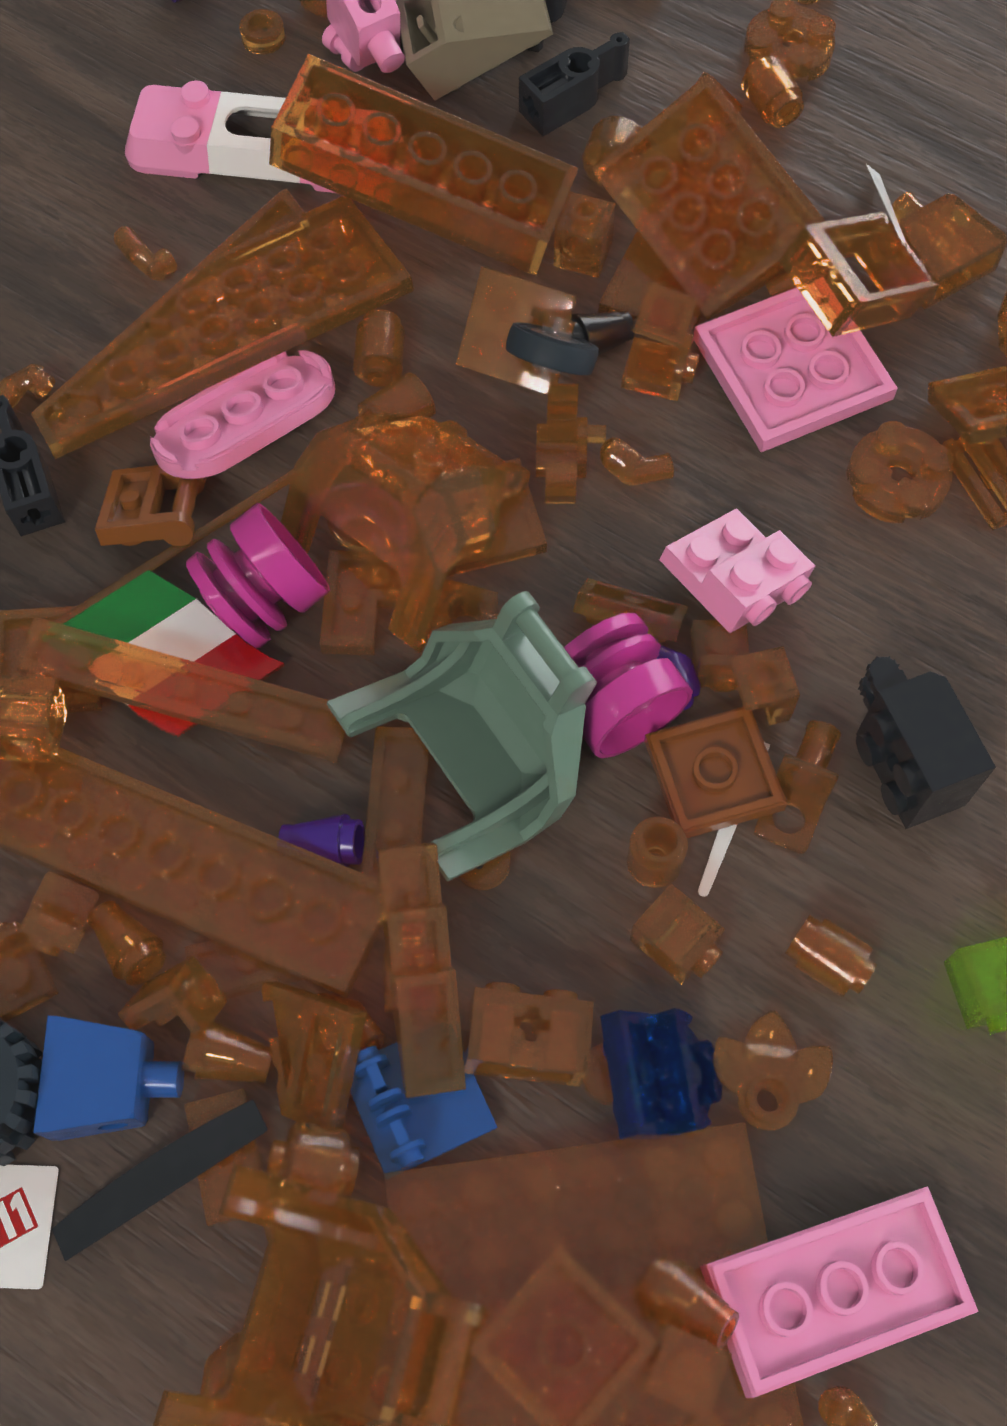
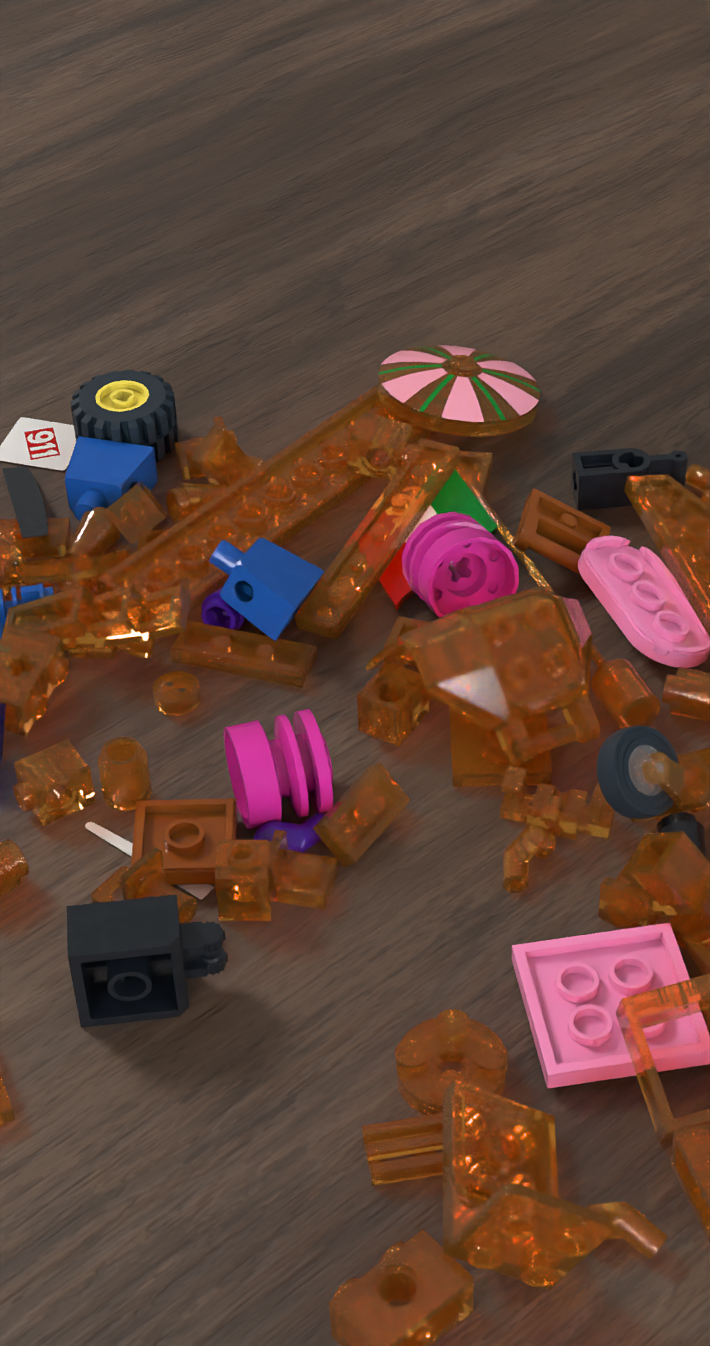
camera: 105 degrees right, 25 degrees down
(316, 781) = (265, 583): none -> blue torso
(500, 719) = (308, 675): sand green piece -> none
(738, 570) = (373, 892): bright pink plate -> none

